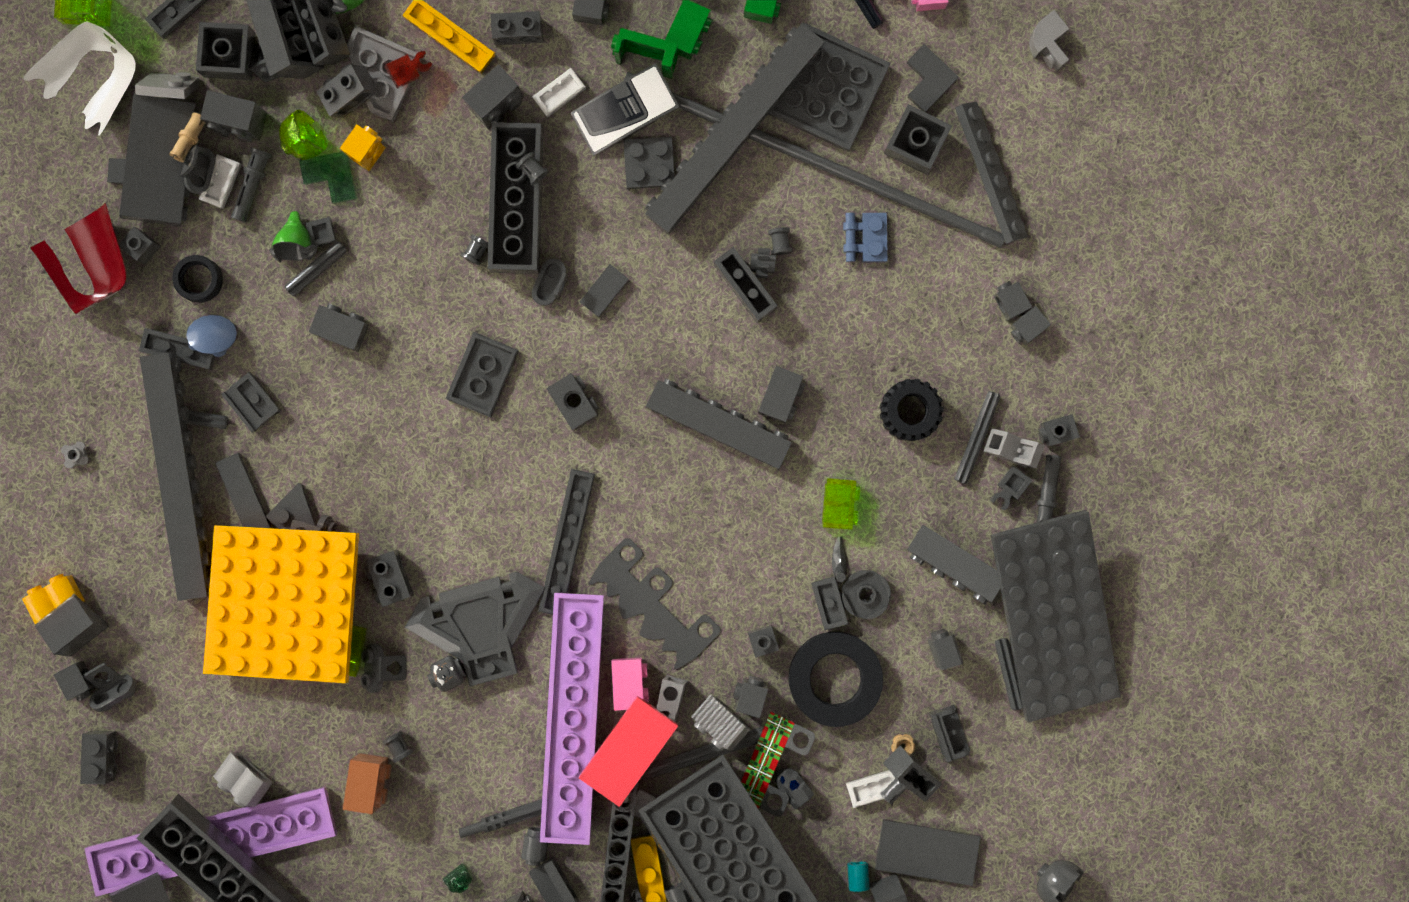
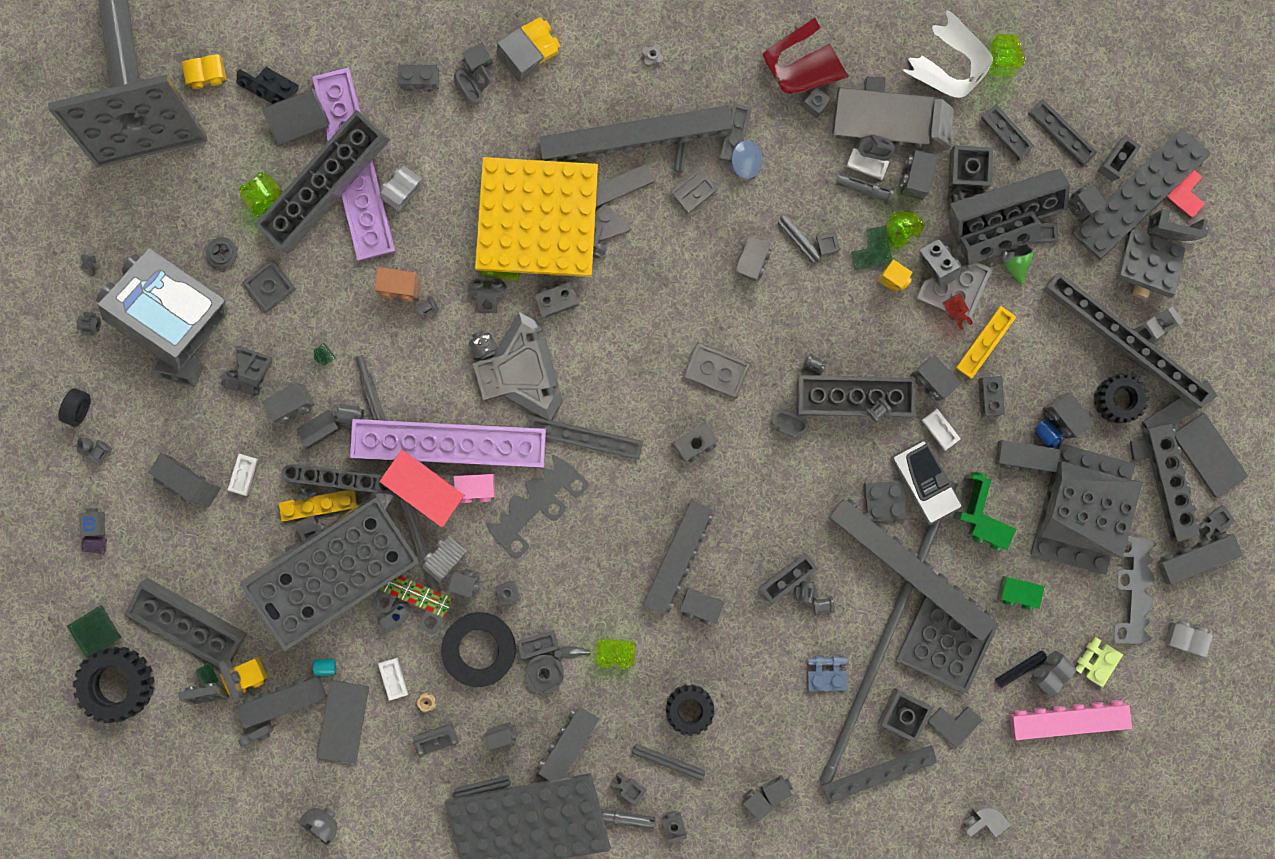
camera: 90 degrees right, 0 degrees up
(180, 270) = (790, 133): black tyre -> none
(187, 138) = (901, 139): tan pin -> none
(293, 241) = (820, 222): hat -> none
(604, 290) = (783, 466): dark grey tile -> none
(671, 696) = (465, 520): light grey leg -> none
(908, 775) = (403, 707): dark grey brick -> none
(1014, 449) = (659, 791): light grey brick -> none

